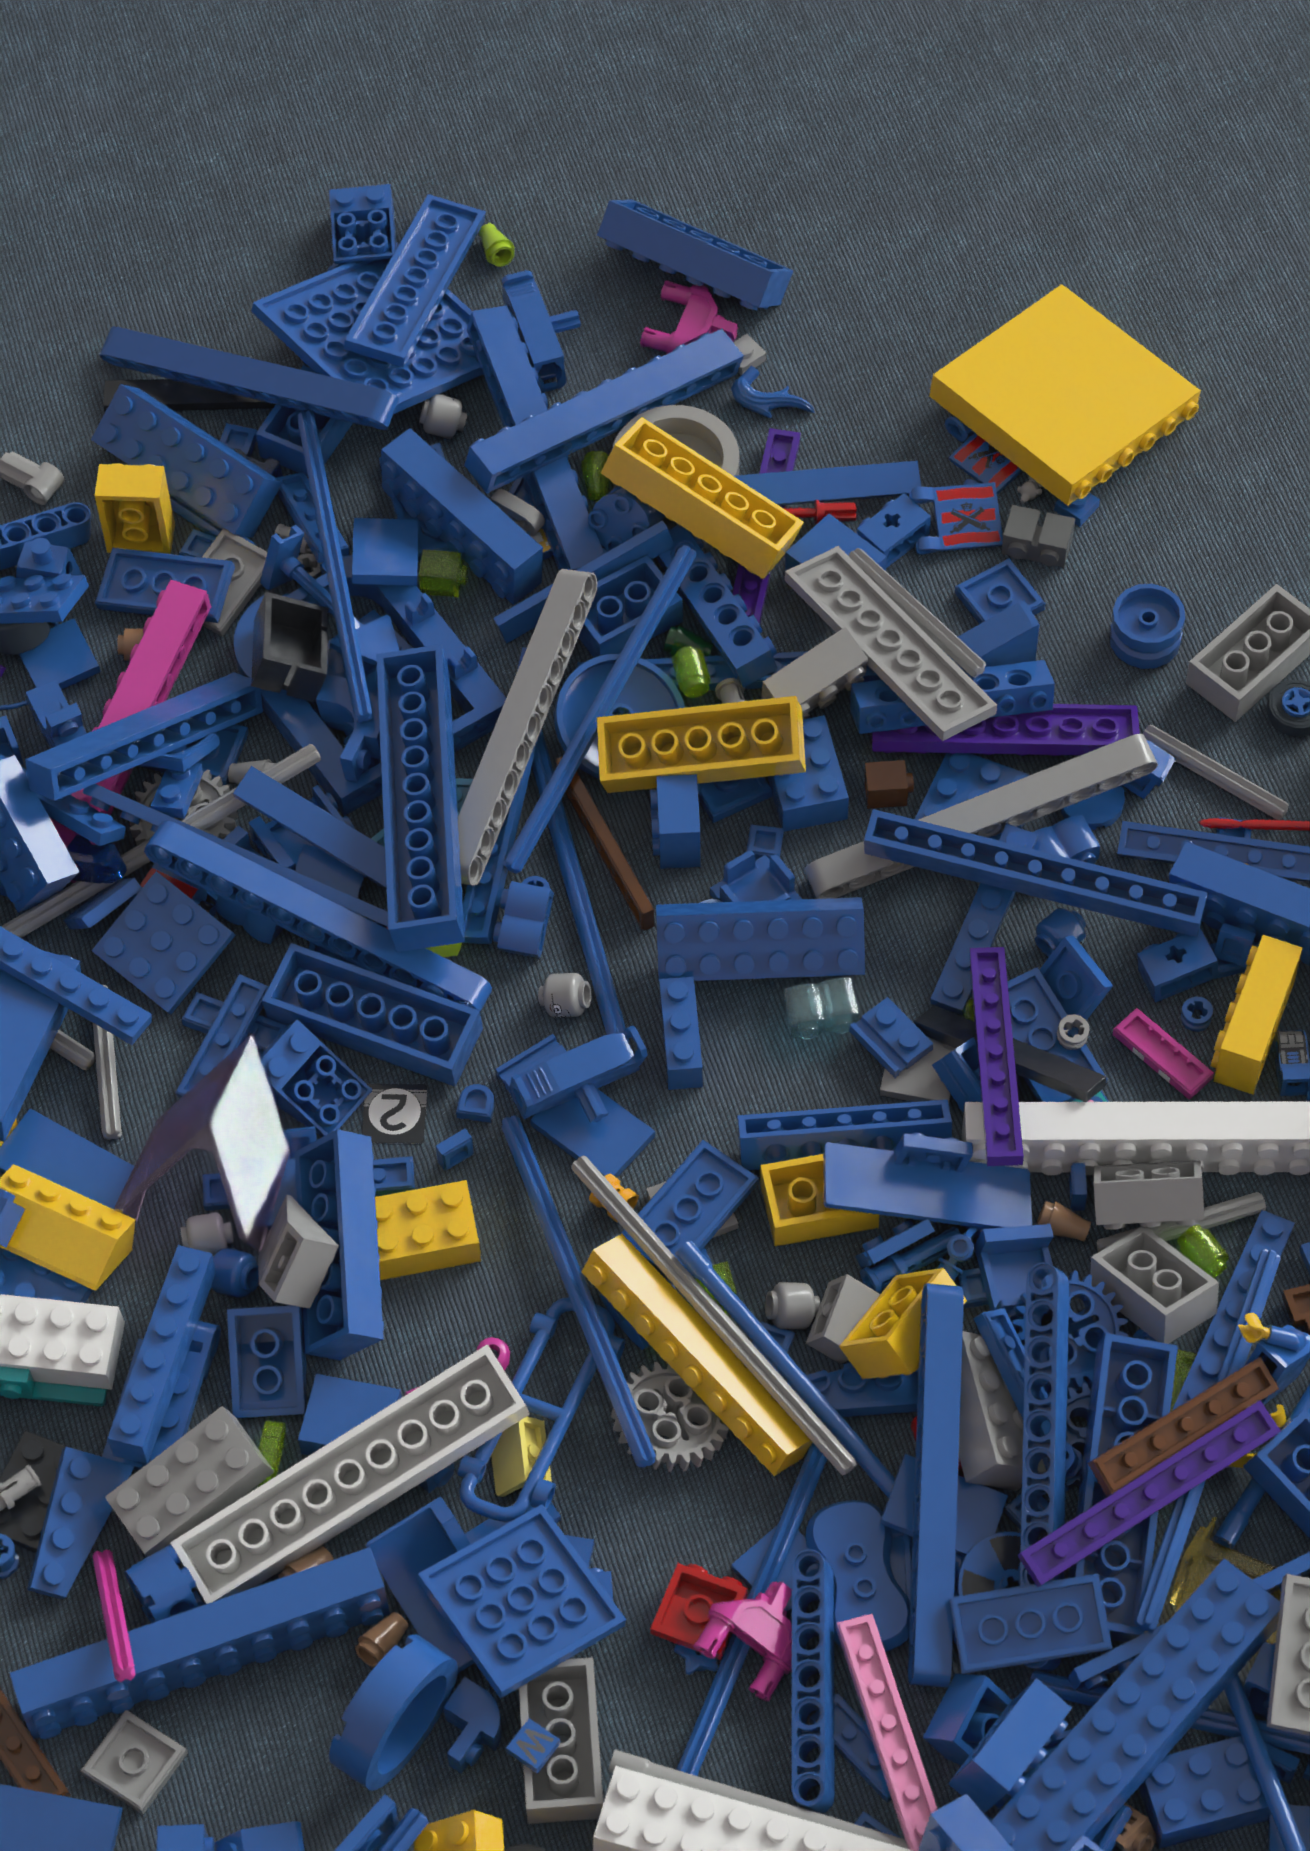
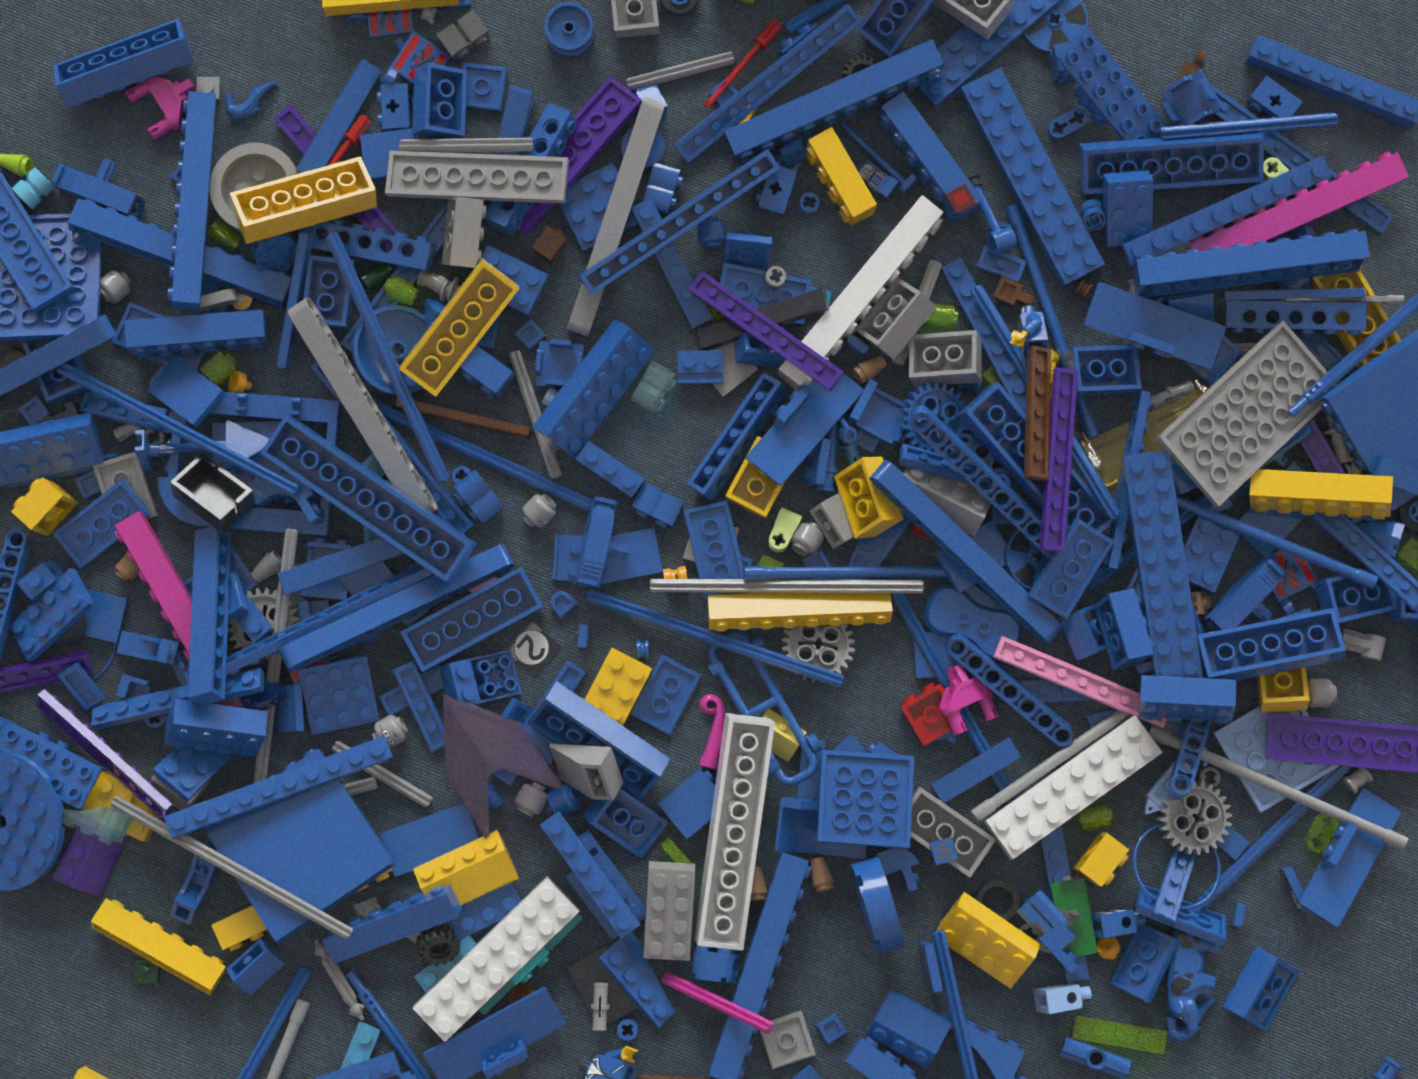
camera: 55 degrees left, 25 degrees up
(167, 1030) = (392, 728): none -> light grey head
(172, 1199) = (494, 799): none -> blue pin
(192, 1804) = (831, 1028): none -> blue tile
(443, 601) = (238, 382): none -> light orange tile
(462, 1295) = (665, 694): none -> blue tile
(482, 274) = (33, 188): none -> medium azure wheel
(494, 1226) = (642, 650): none -> blue bush
(675, 1721) = (976, 770): none -> blue tile
(684, 1114) = (657, 505): none -> blue brick
(689, 893) = (534, 413): none -> light grey axle
(775, 1267) = (784, 526): none -> yellowish green piece
(942, 556) = (439, 101): none -> blue brick
(1163, 1053) = (818, 239): dark pink plate -> none

